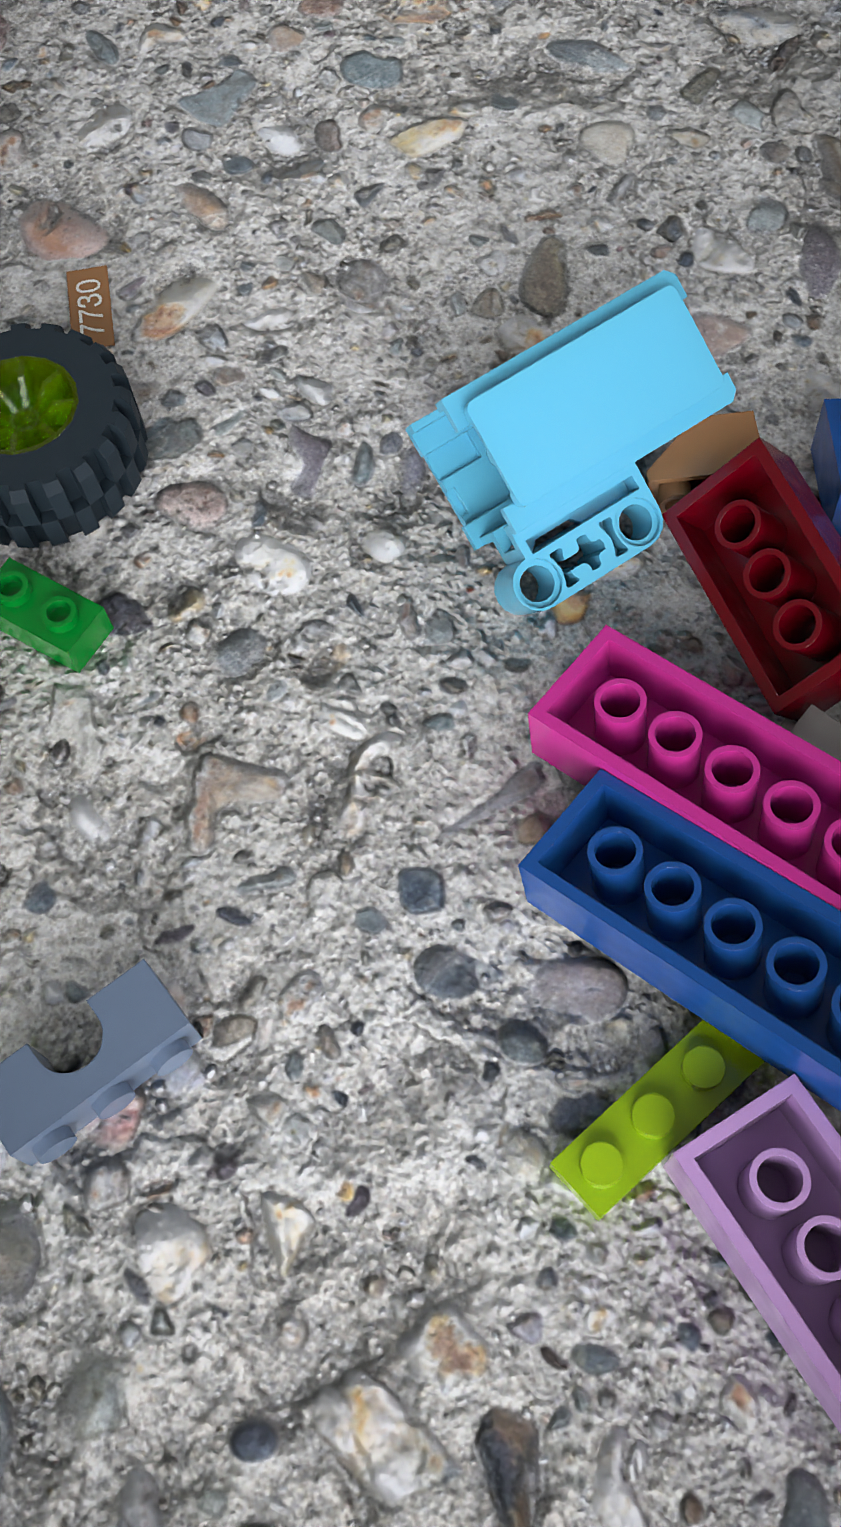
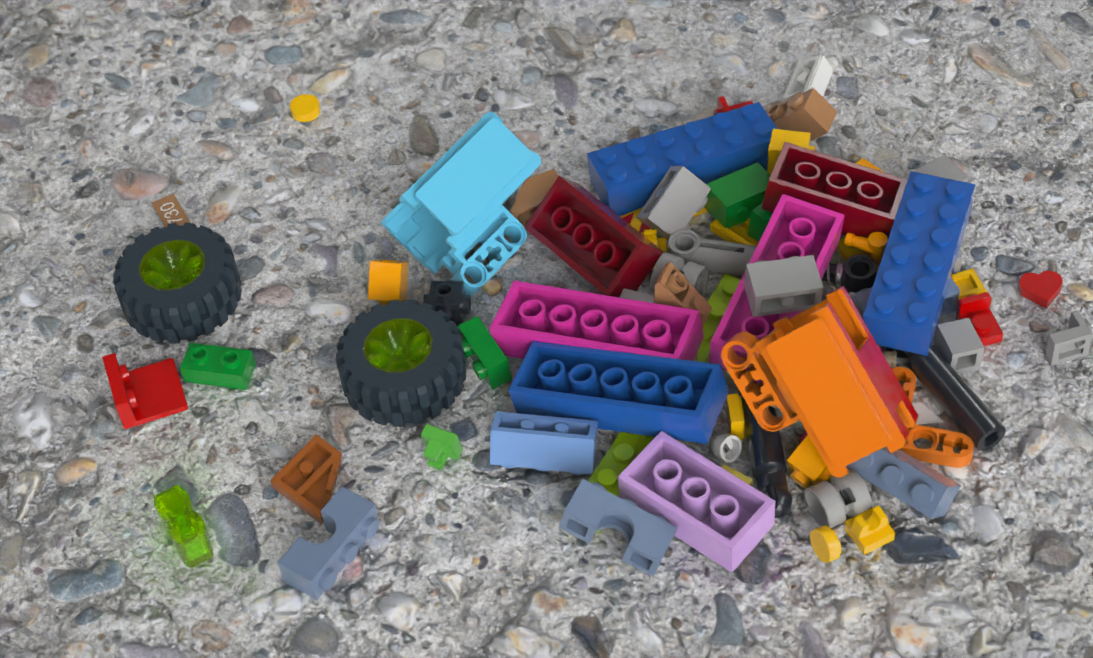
camera: 20 degrees left, 15 degrees down
(110, 903) = (310, 477): none -> dark orange wing
(347, 723) = (401, 363): none -> black wheel
(357, 923) = (439, 446): none -> bright green tile
(369, 172) = (305, 108): none -> yellow tile
(383, 545) = (388, 280): none -> light orange brick
(472, 626) = (449, 298): none -> black brick
(511, 767) = (487, 357): none -> green piece
(554, 995) = (543, 443): none -> medium blue brick
(691, 1302) = (596, 509): none -> sand blue arch

